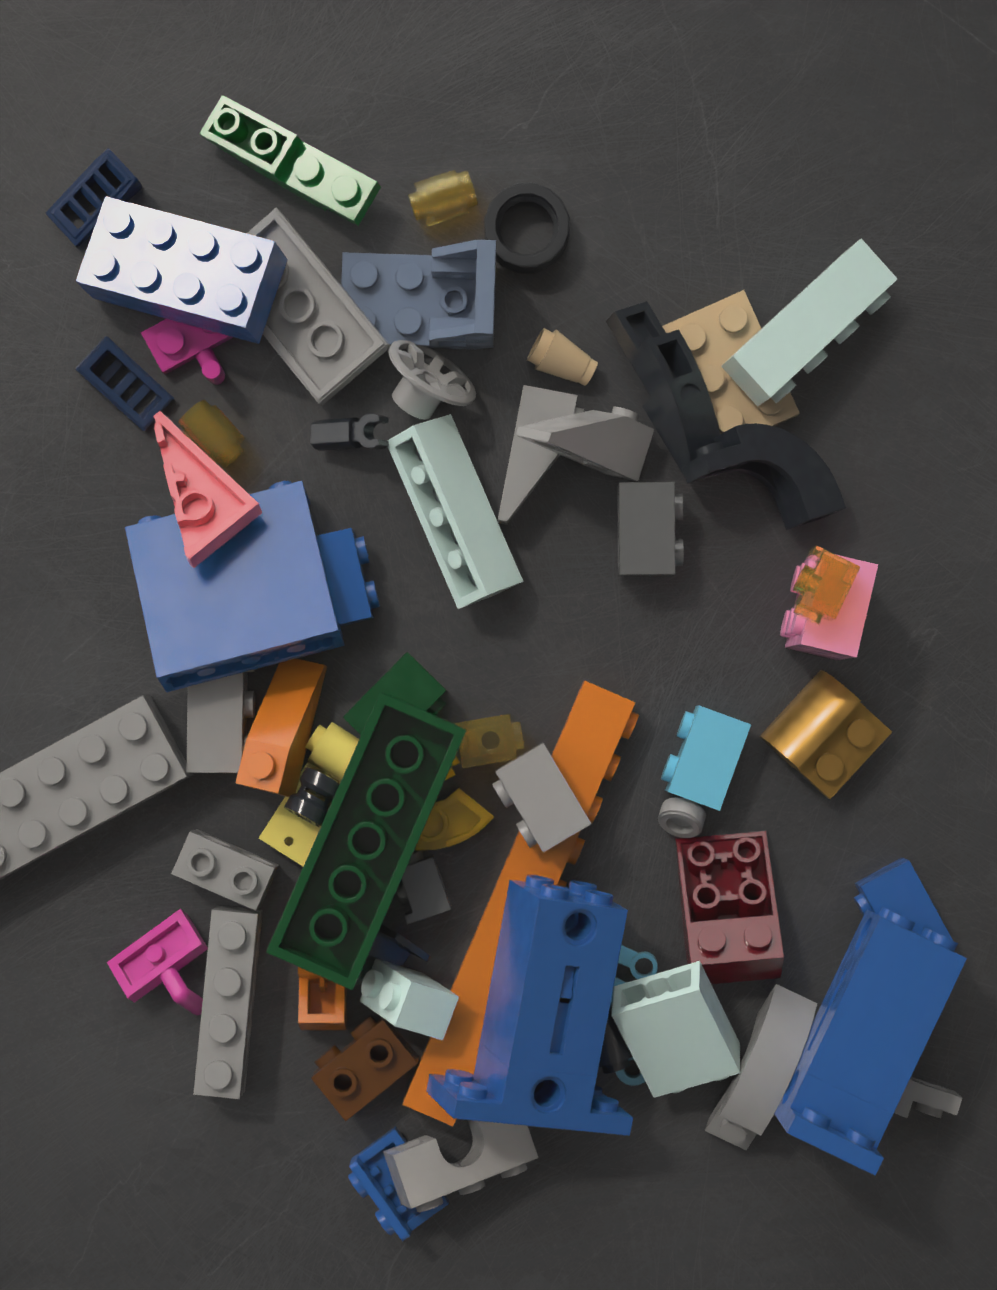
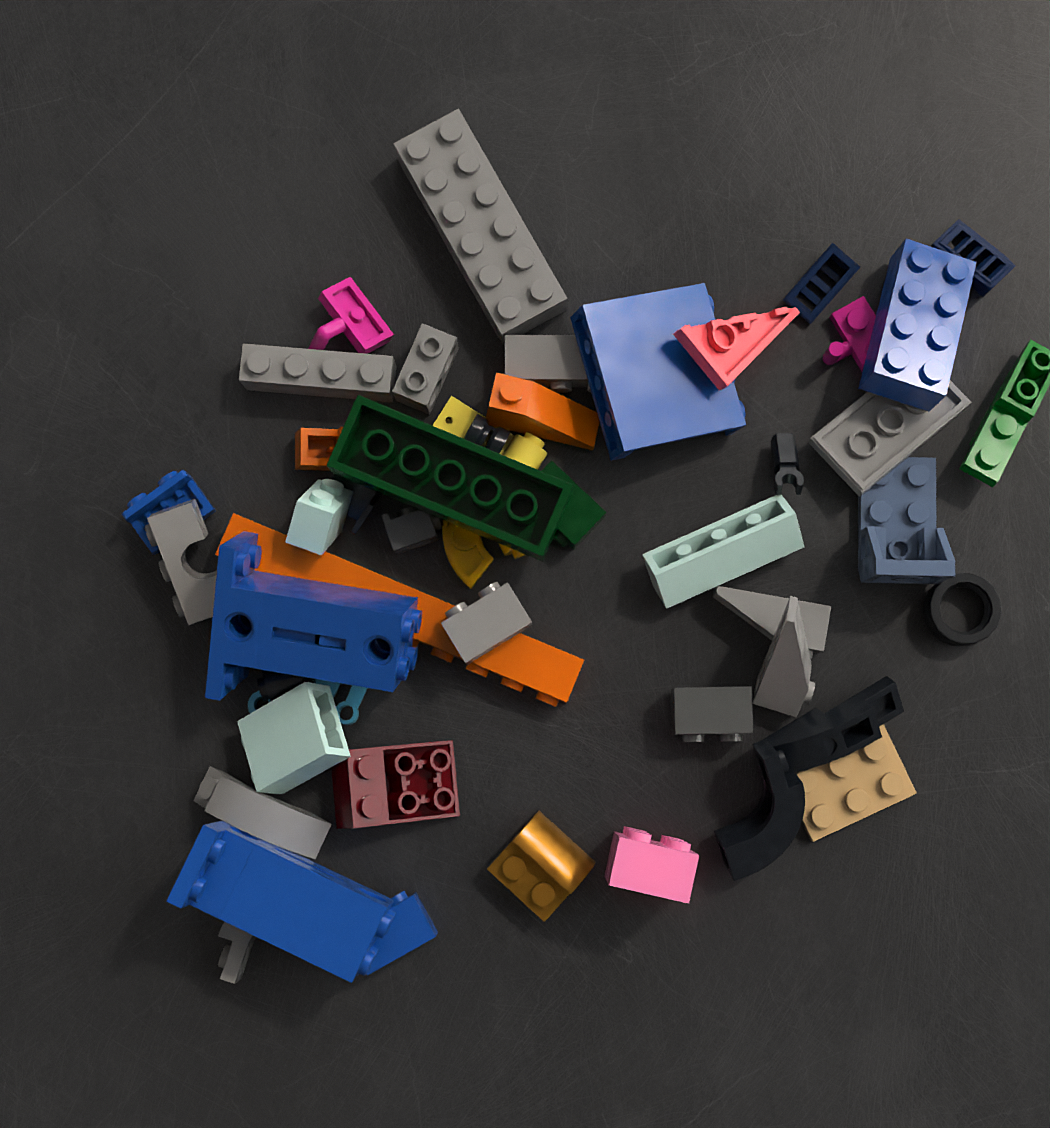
camera: 90 degrees right, 5 degrees down
(212, 433) = (782, 353): clear yellow brick -> none
(342, 563) = (666, 462): blue brick -> none
(364, 1066) = (264, 483): reddish brown brick -> none
(424, 384) = (828, 524): light grey wheel -> none
(443, 197) = (985, 539): clear yellow brick -> none
(472, 749) = (523, 569): clear yellow brick -> none
(561, 357) = (853, 639): tan cone -> none
(681, 817) = (470, 743): light grey tile -> none
(706, 756) = (520, 763): medium azure brick -> none
(809, 323) = (891, 848): light aqua brick -> none
(823, 585) = (669, 854): clear yellow brick -> none

